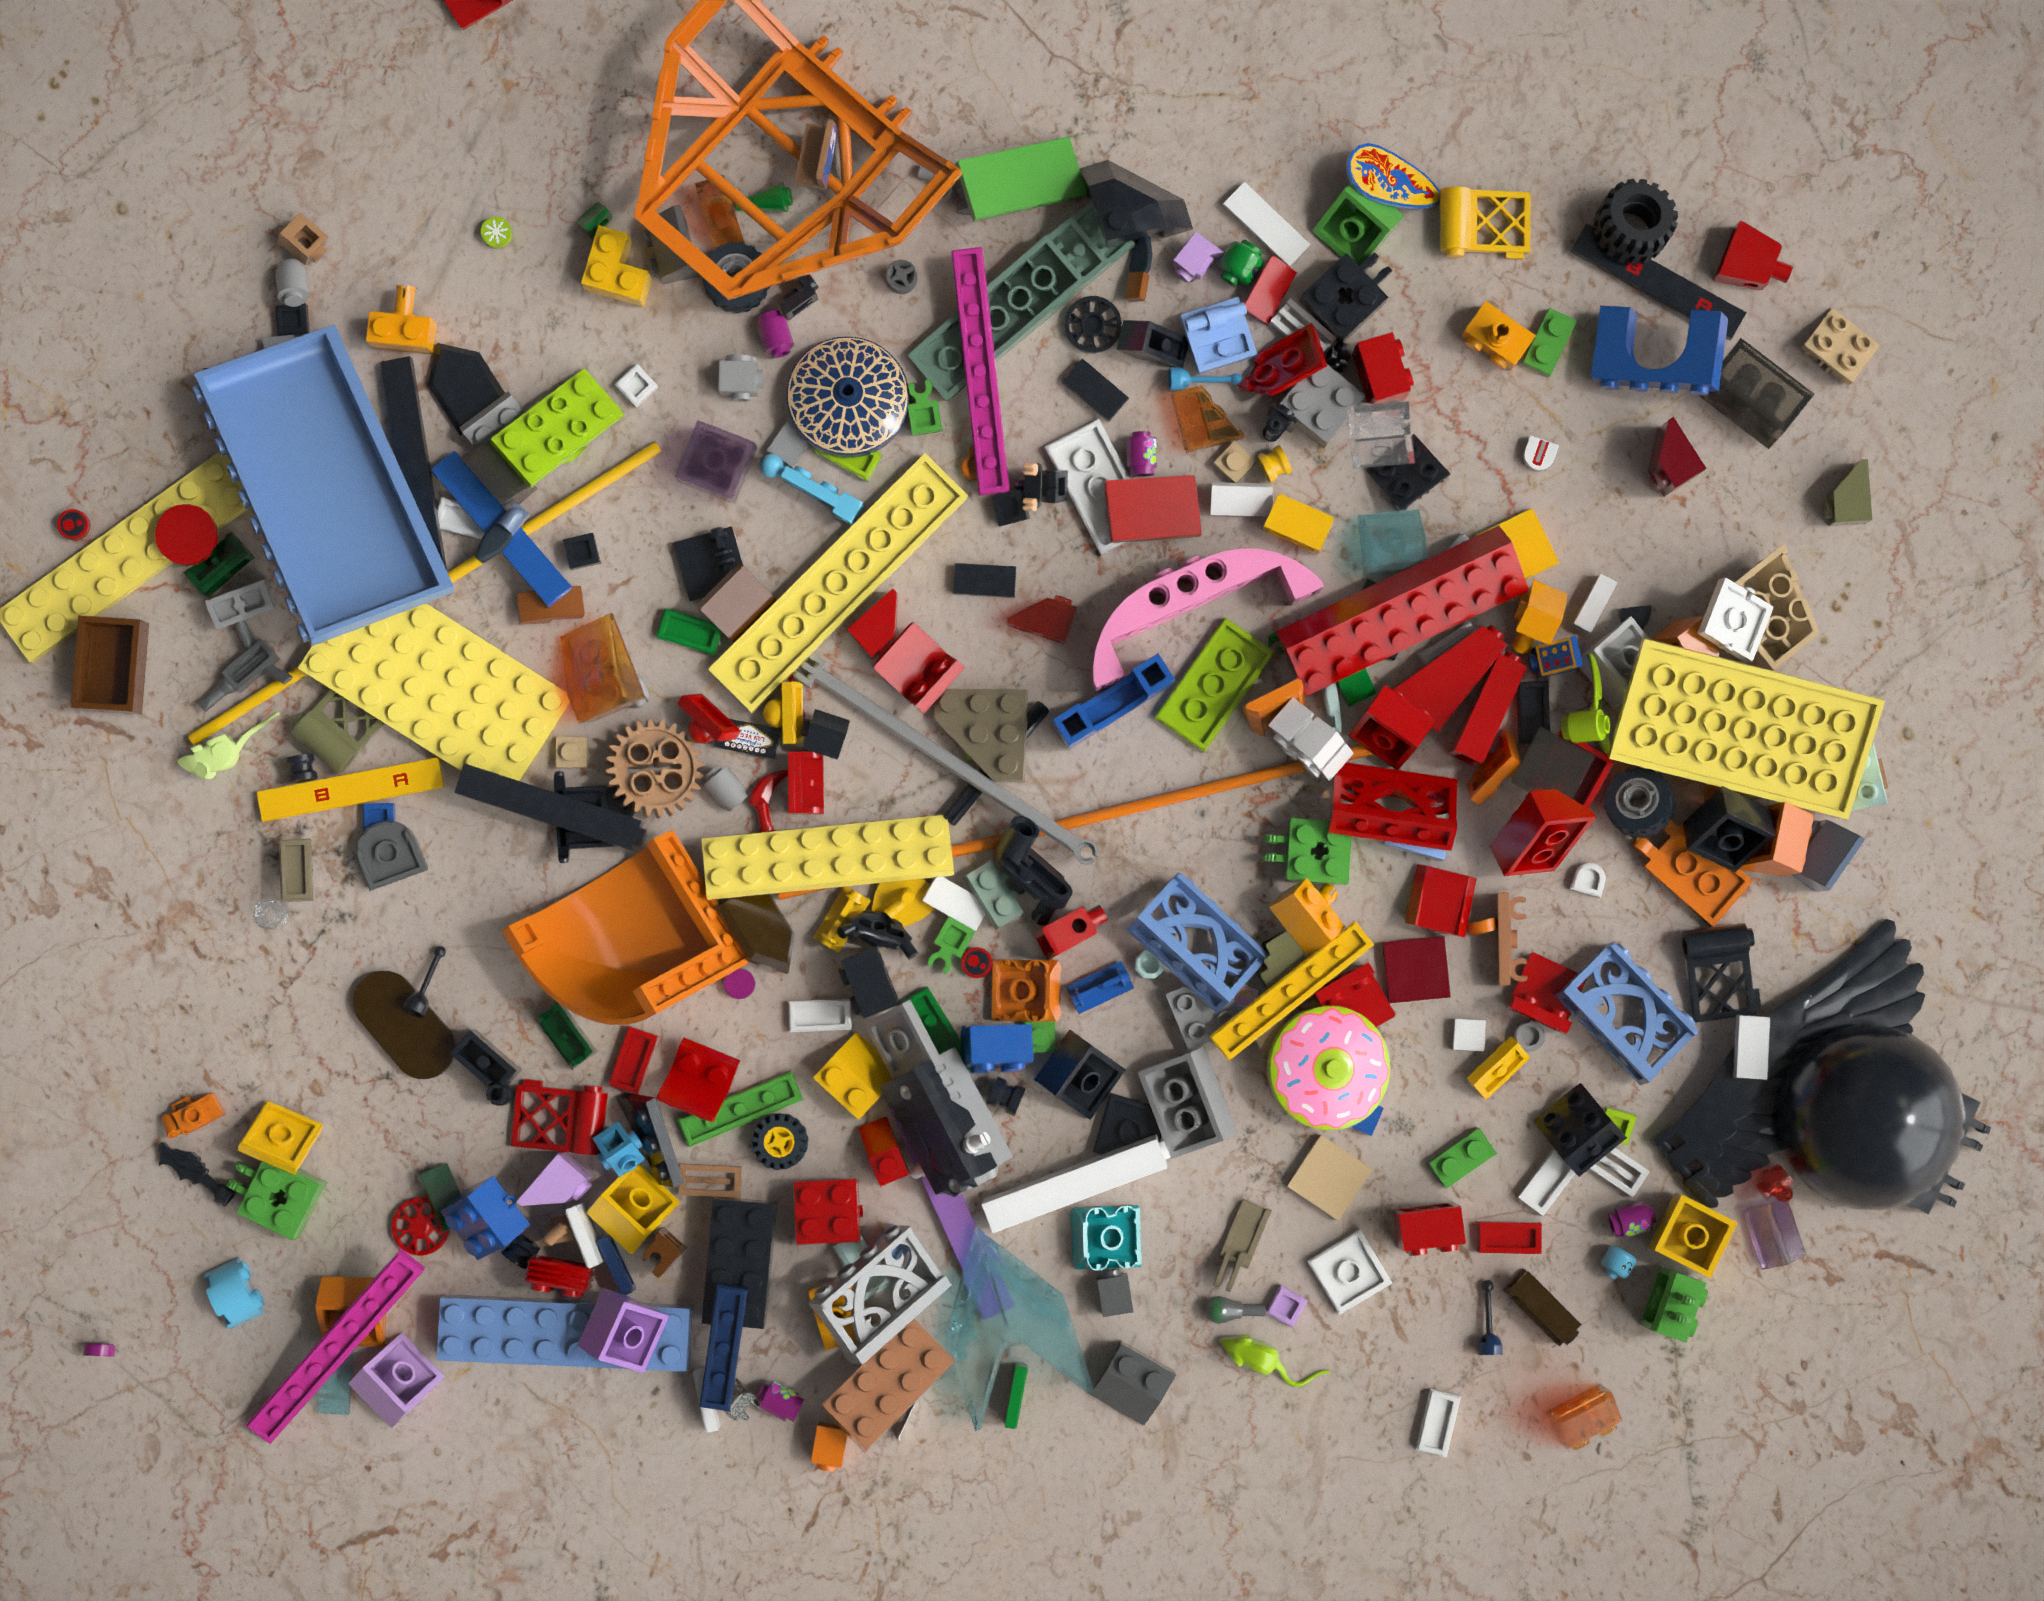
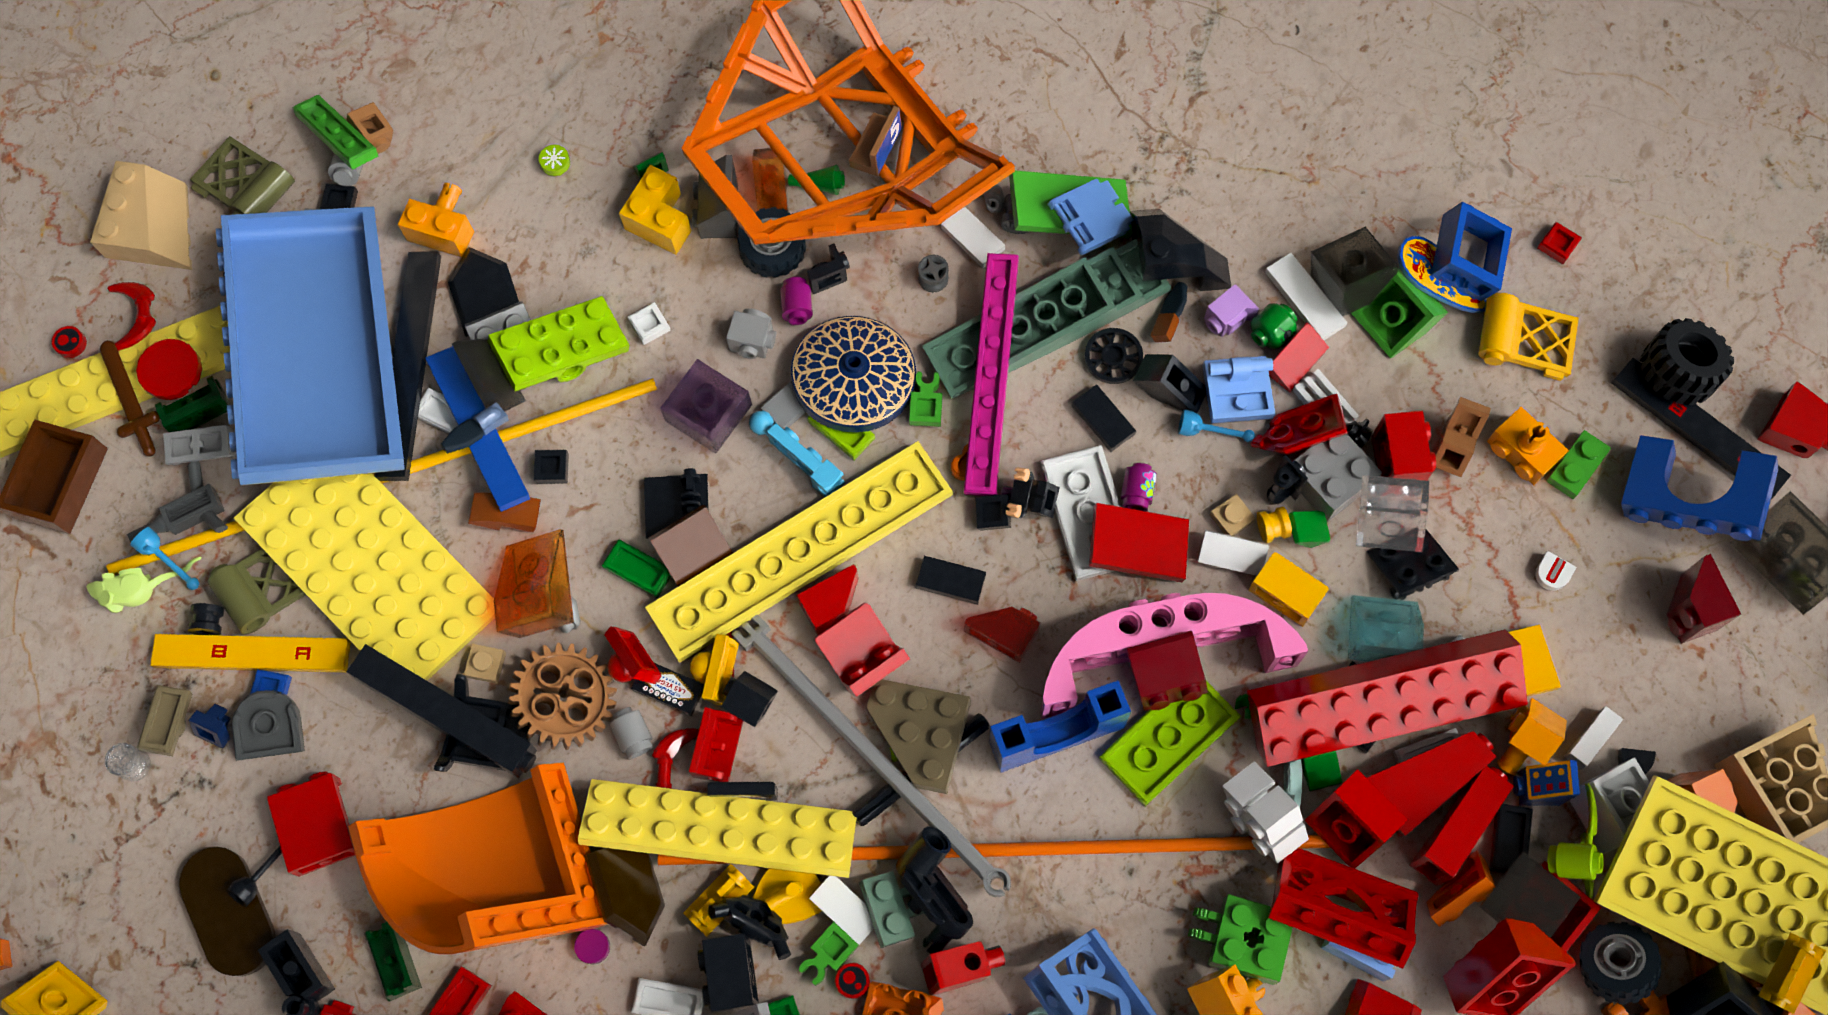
camera: 15 degrees right, 15 degrees down
(107, 381) = (144, 218): none -> tan wedge
(144, 491) = (144, 321): none -> red piece
(169, 590) = (136, 419): none -> reddish brown sword
(209, 334) = (256, 191): none -> olive piece
(224, 709) = (148, 543): none -> dark azure hinge
(271, 252) = (335, 132): none -> bright green tile
(338, 865) = (211, 725): none -> dark blue tile
(459, 931) = (311, 823): none -> red panel
(840, 818) = (753, 790): none -> black tile
(939, 233) = (972, 236): none -> white tile
(1044, 189) = (1092, 215): none -> medium blue plate
(1201, 420) = (1206, 468): clear orange wing -> none
(1201, 629) = (1167, 671): none -> dark red slope
(1265, 708) = (1221, 767): orange slope -> none
(1306, 193) = (1352, 270): none -> clear smoke slope
(1307, 460) = (1309, 528): none -> green slope
(1348, 279) = (1392, 376): black hinge -> none
(1409, 176) = (1461, 273): none -> blue window
(1433, 342) = (1460, 436): none -> medium nougat brick
(1502, 115) = (1559, 242): none -> red tile
(1735, 619) = (1757, 780): white plate -> none
(1780, 783) = (1792, 973): none -> yellow hinge

